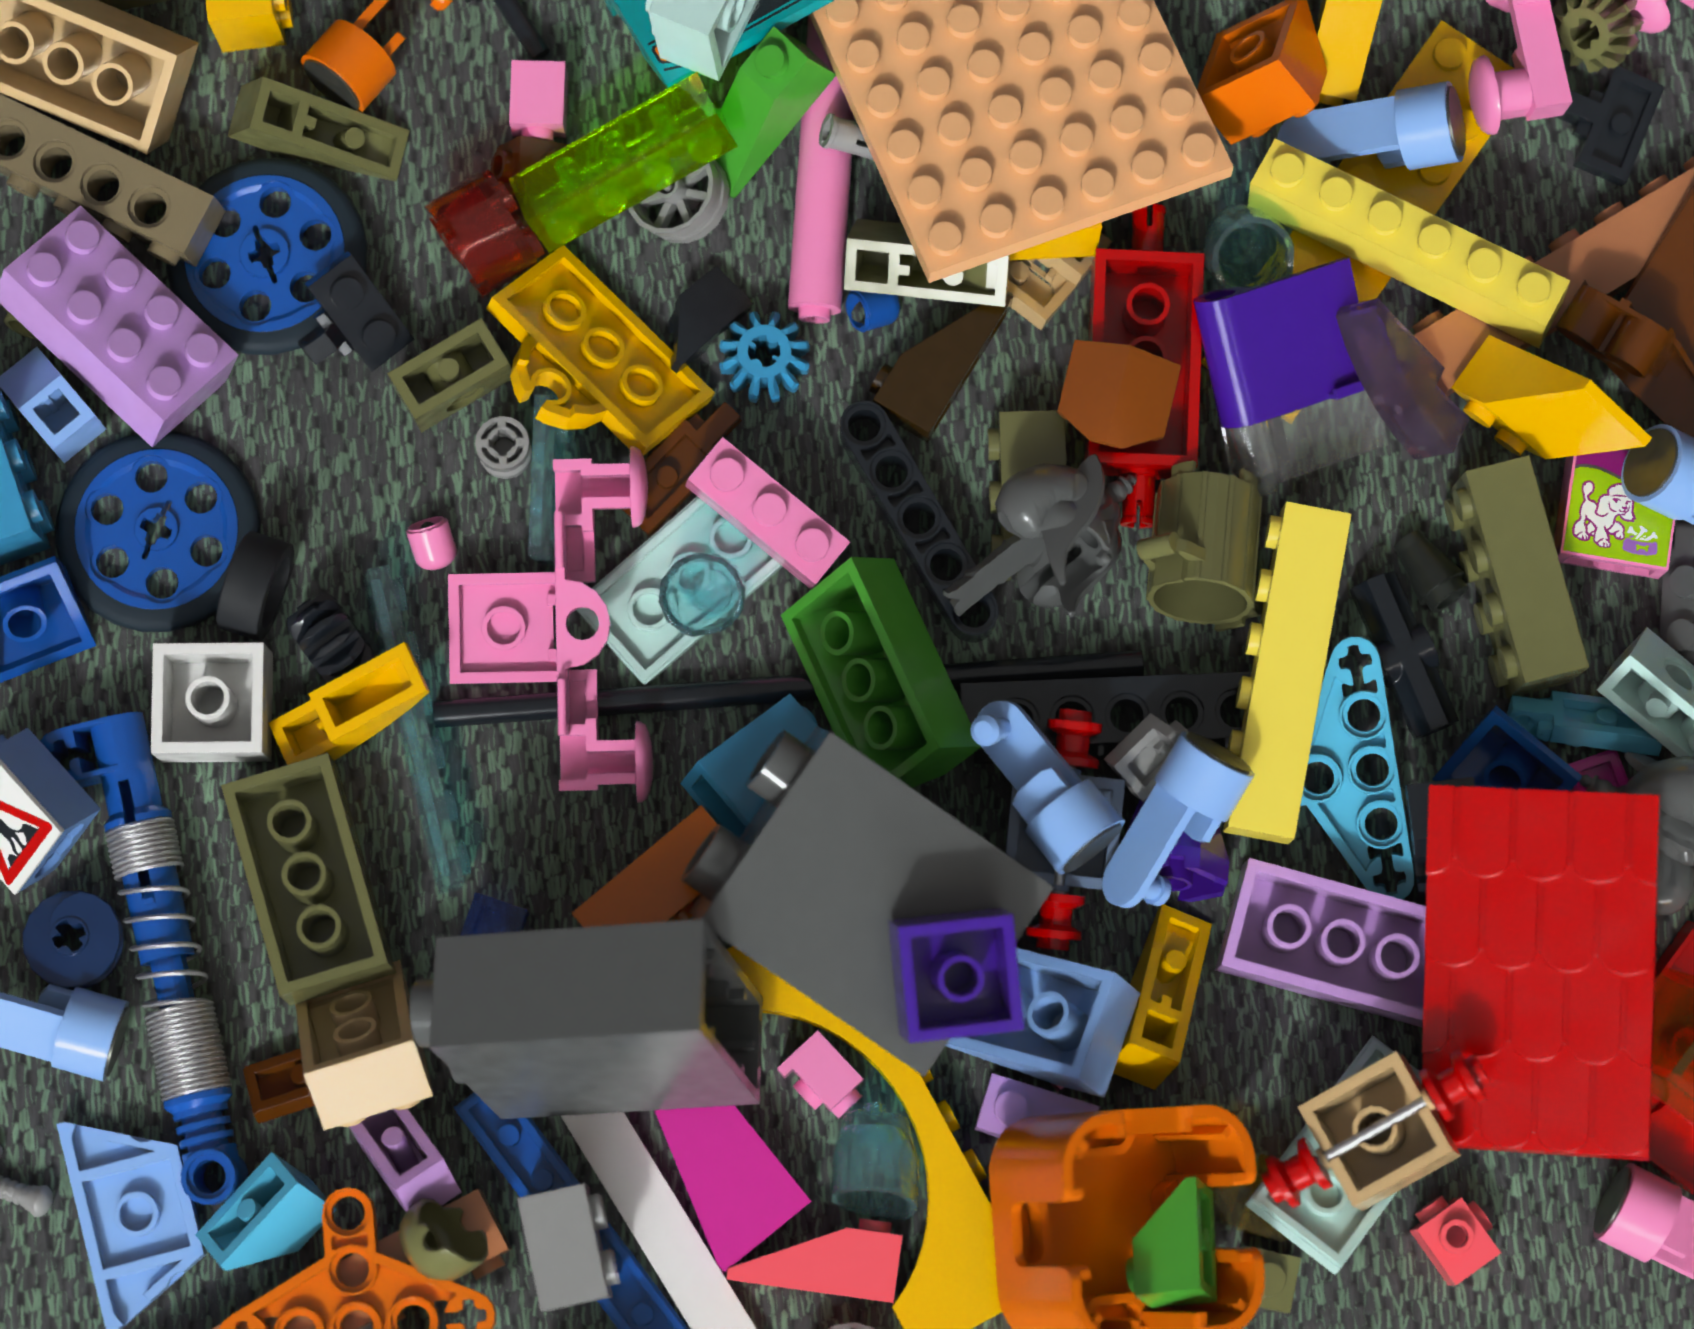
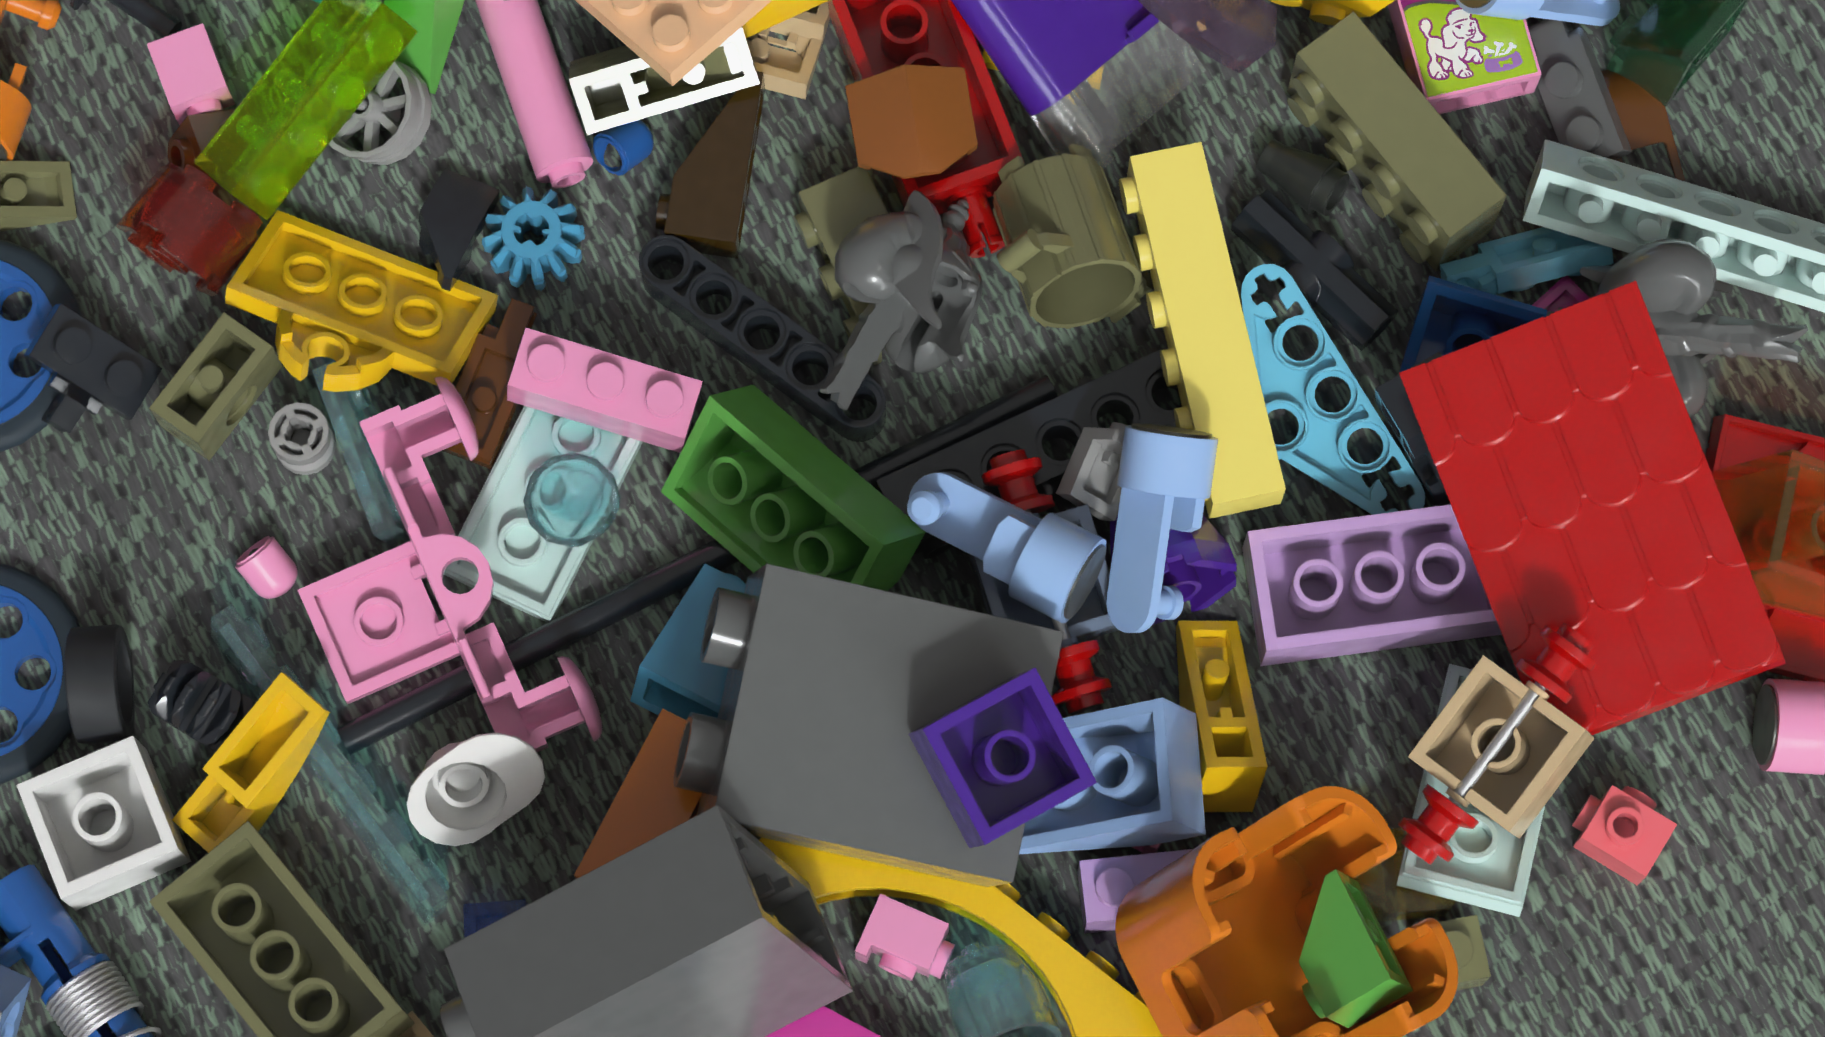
camera: 20 degrees left, 5 degrees down
(522, 800) = (474, 787): none -> white piece

